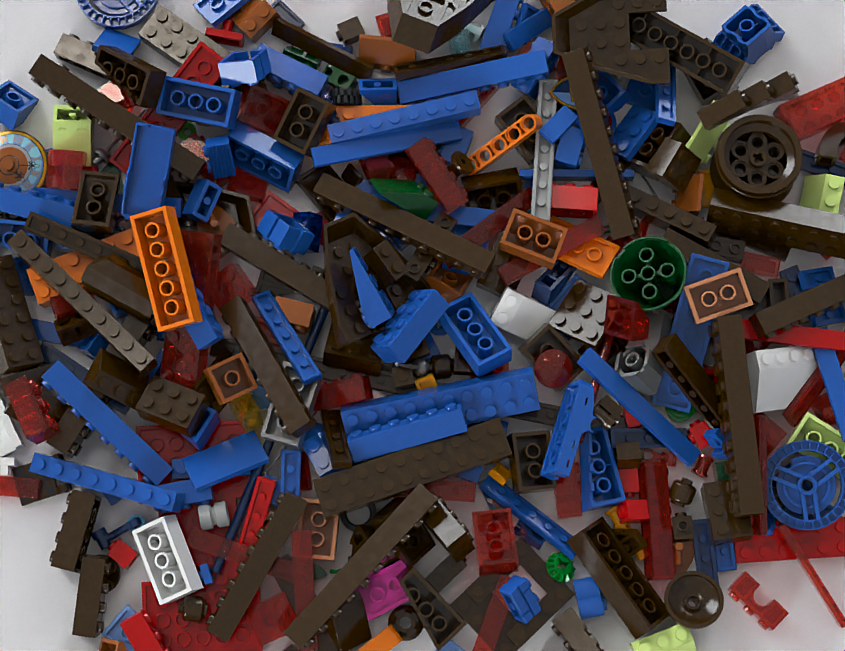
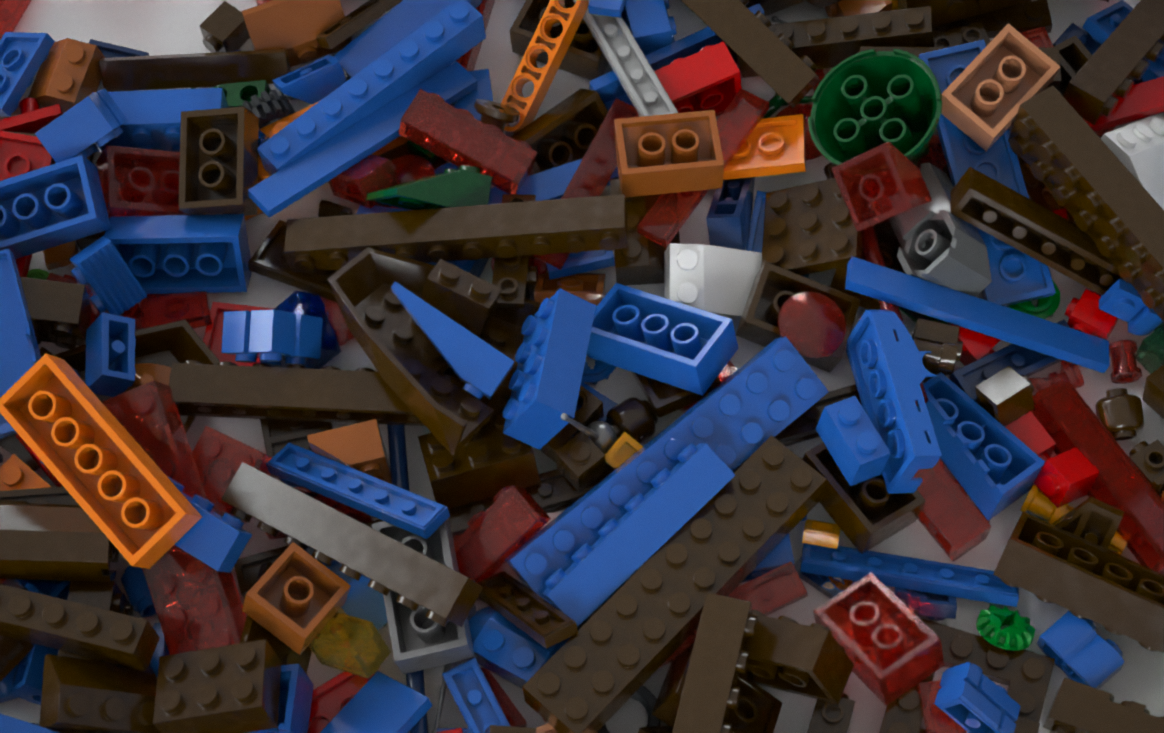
camera: 25 degrees left, 15 degrees down
(536, 441) = (852, 440): none -> blue brick

